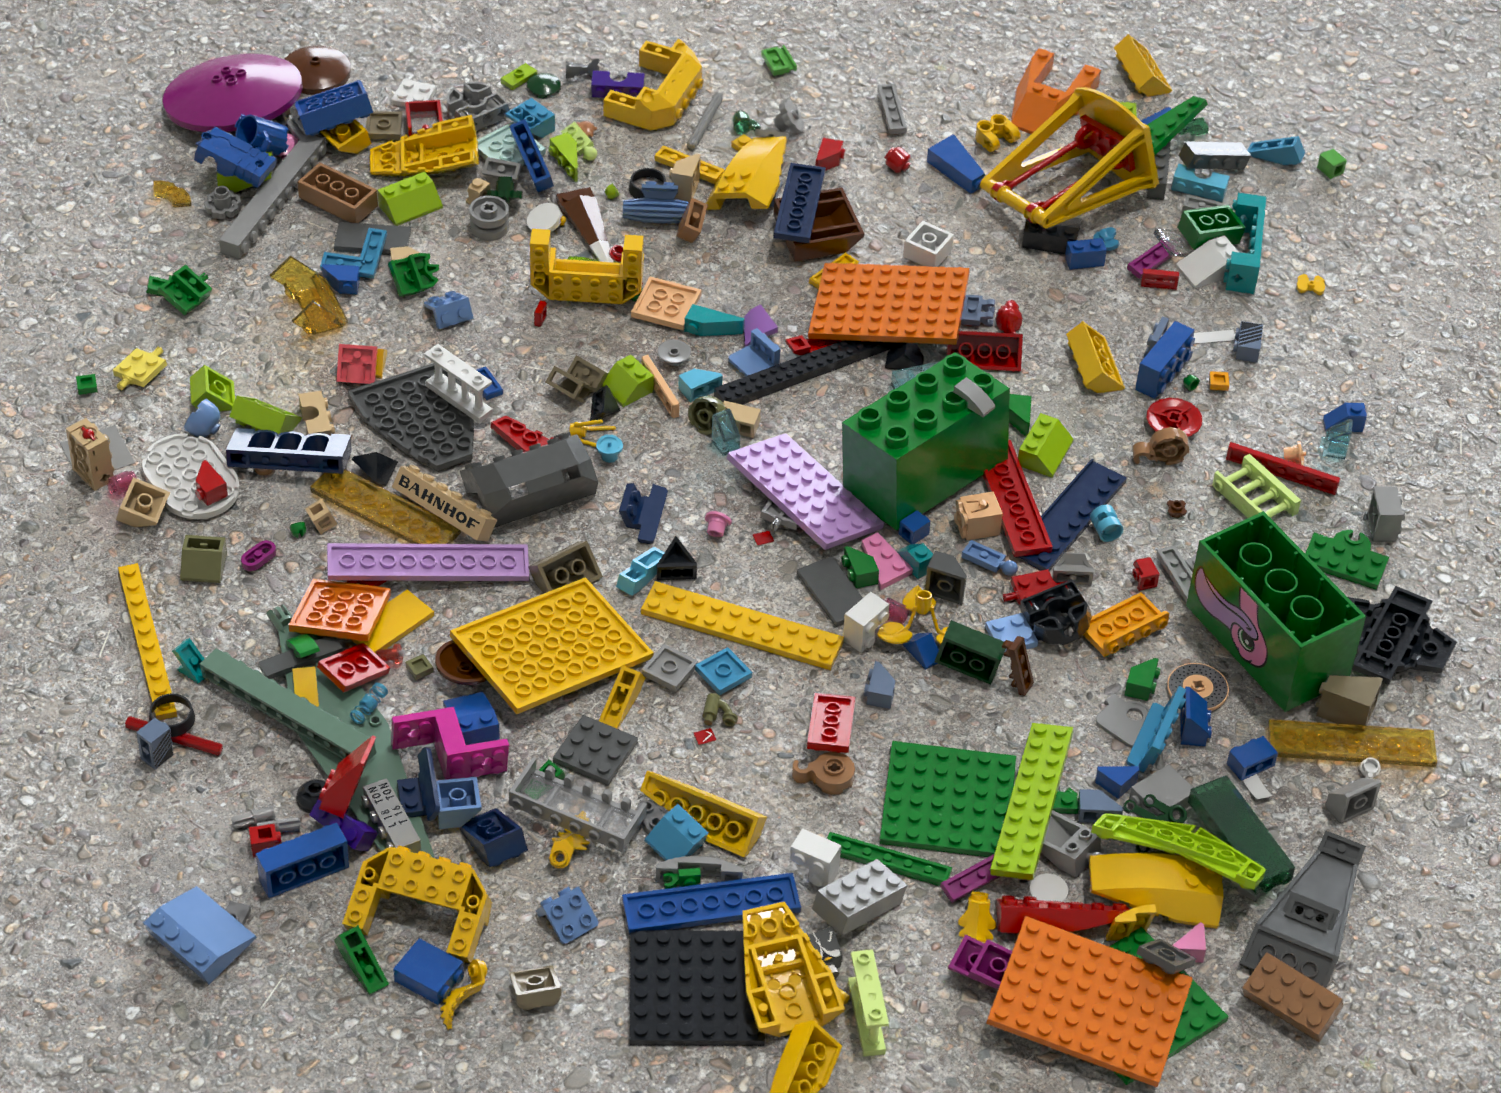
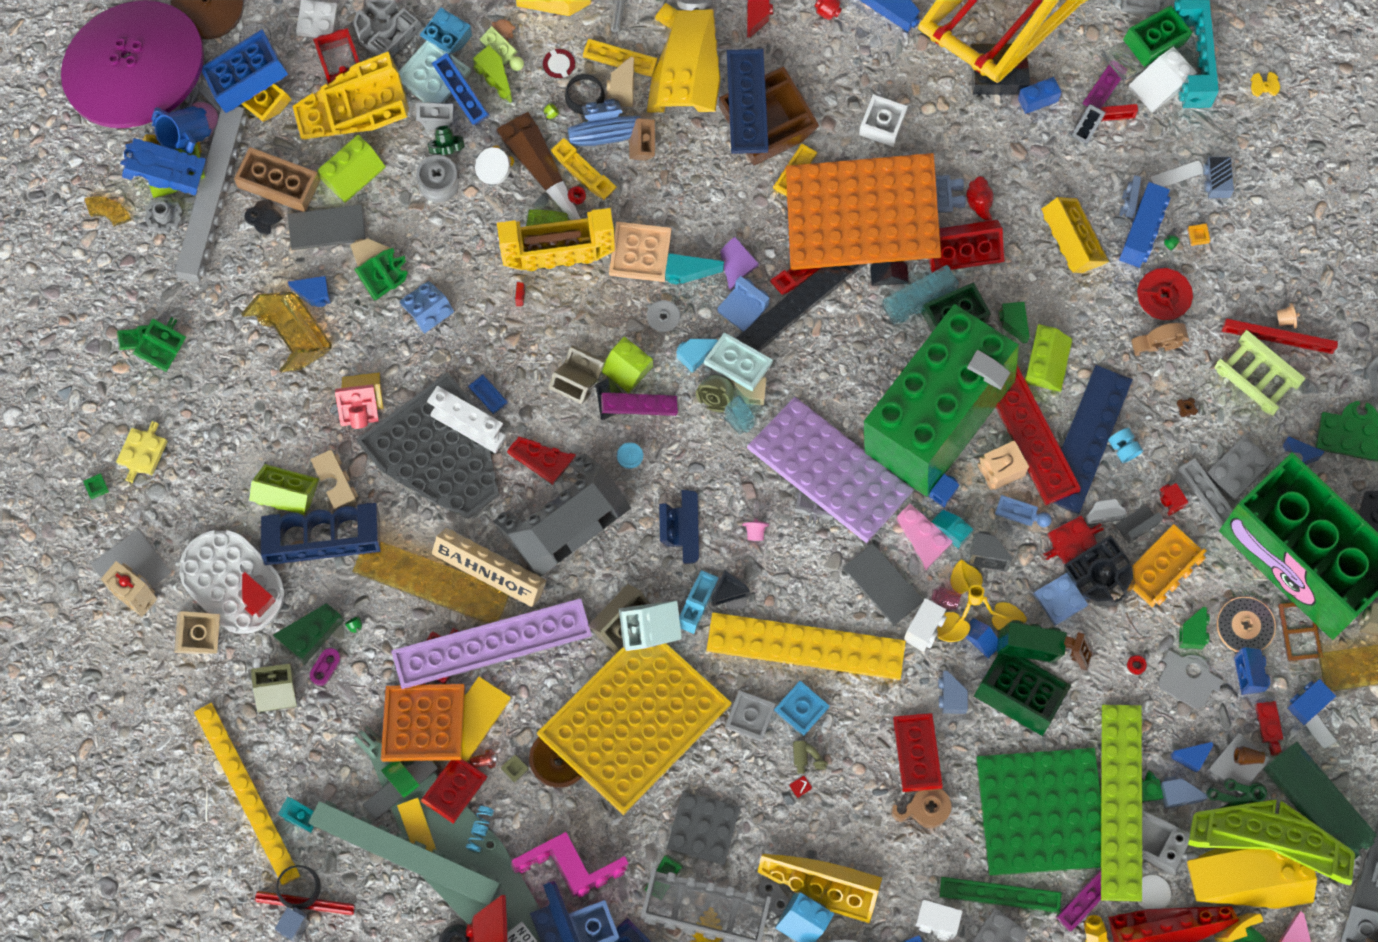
camera: 10 degrees left, 25 degrees up
(120, 483) = (168, 606): clear pink brick -> none
(204, 420) = (226, 511): medium blue cylinder -> none
(212, 386) = (222, 469): lime slope -> none
(252, 524) = (310, 632): none -> dark green wedge
(314, 220) = (265, 216): none -> black plate
(321, 516) = (372, 605): tan brick -> none
(369, 256) = (331, 258): dark azure plate -> none
(376, 466) = (409, 531): black slope -> none
(384, 125) = (301, 70): dark tan plate -> none
(475, 718) = (579, 817): blue slope -> none
(477, 189) = (418, 145): tan brick -> none
(581, 428) = (594, 438): yellow plant -> none
(582, 266) = (552, 238): none -> reddish brown plate
(589, 568) = (649, 625): none -> light aqua slope
(619, 227) = (582, 170): none -> yellow slope
(622, 696) = (714, 764): yellow slope -> none
(630, 162) = (558, 63): none -> sticker
(630, 410) = (639, 404): none -> magenta plate
(661, 388) = (660, 364): light nougat tile -> none
(736, 390) = (738, 361): none -> light aqua plate
(763, 537) = (801, 531): red sticker -> none
(860, 567) = (904, 553): green slope -> none
(951, 697) = (1022, 691): none -> dark green slope
(1076, 698) = (1138, 659): none -> red plate
(1107, 589) = (1138, 523): none -> dark grey panel
(1108, 235) = (1055, 63): dark azure piece -> none
(1128, 280) = (1087, 123): none -> slope
(1155, 731) = (1221, 696): dark azure bracket -> none
(1173, 780) = (1247, 756): none -> reddish brown cone
(1203, 767) = (1269, 726): none -> red plate
(1269, 704) = (1295, 631): none -> dark orange window
(1337, 440) = (1326, 291): clear light blue slope -> none
(1344, 412) = (1328, 257): blue slope -> none

